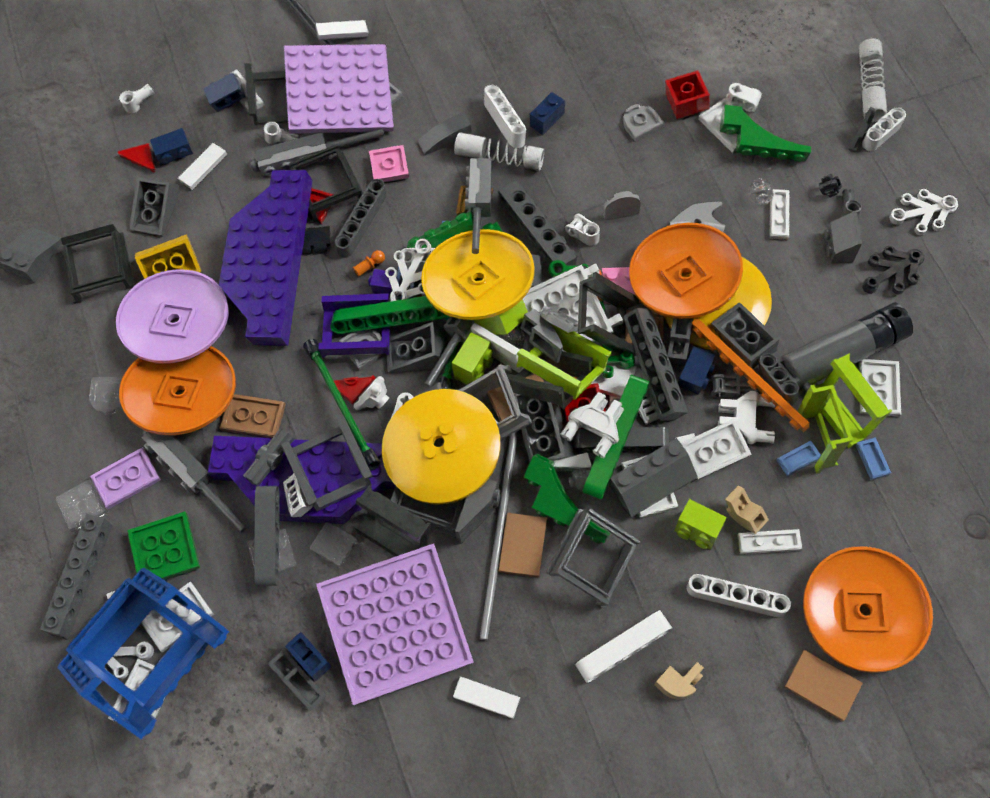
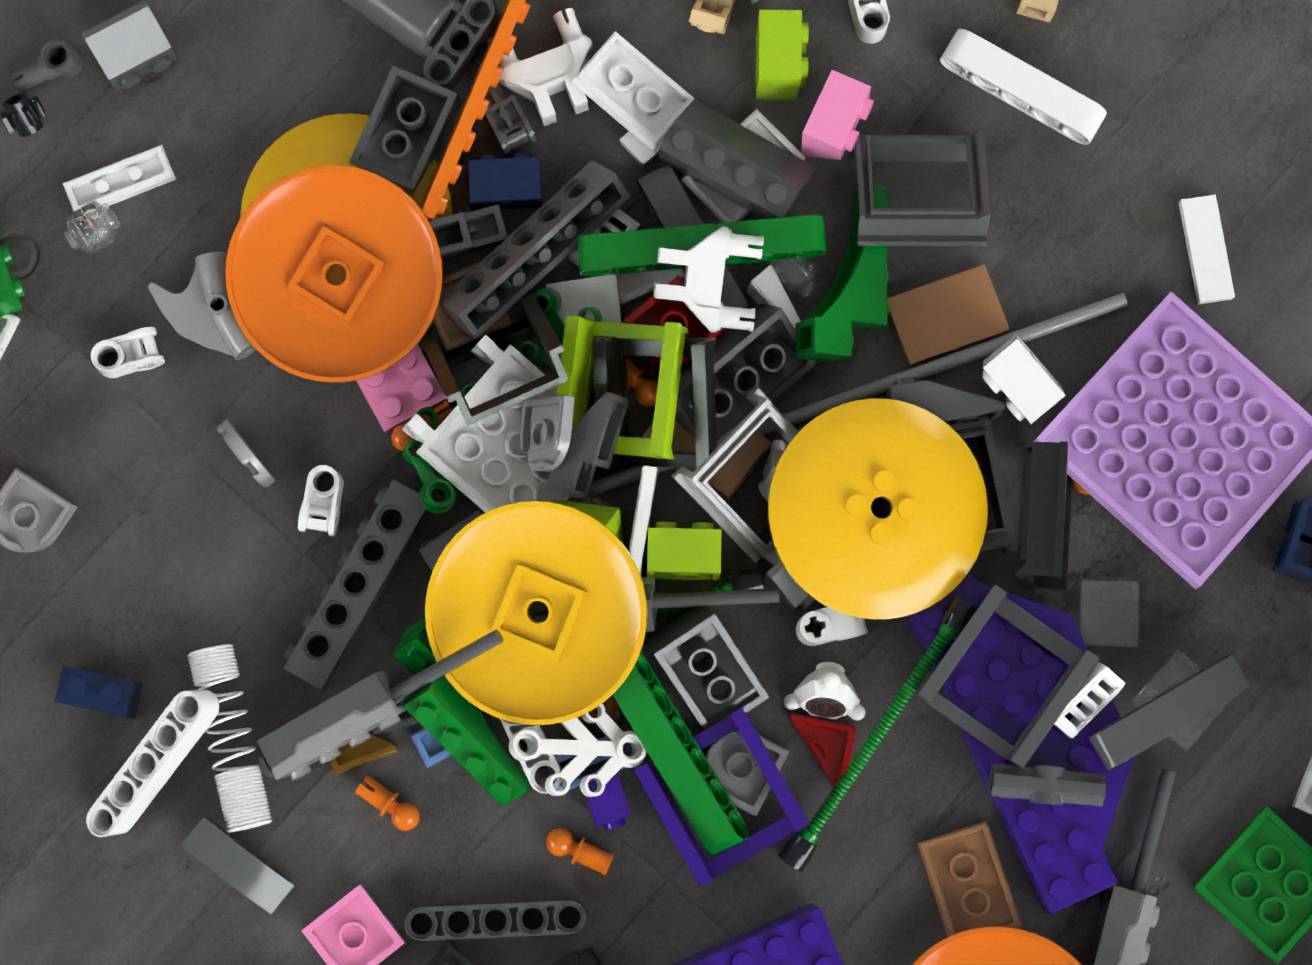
camera: 125 degrees left, 15 degrees up
(427, 203) = (403, 815): none -> orange pin
(466, 550) = (1023, 379): none -> white brick
(652, 532) = (835, 117): none -> bright pink slope
(693, 184) = (130, 353): none -> white piece

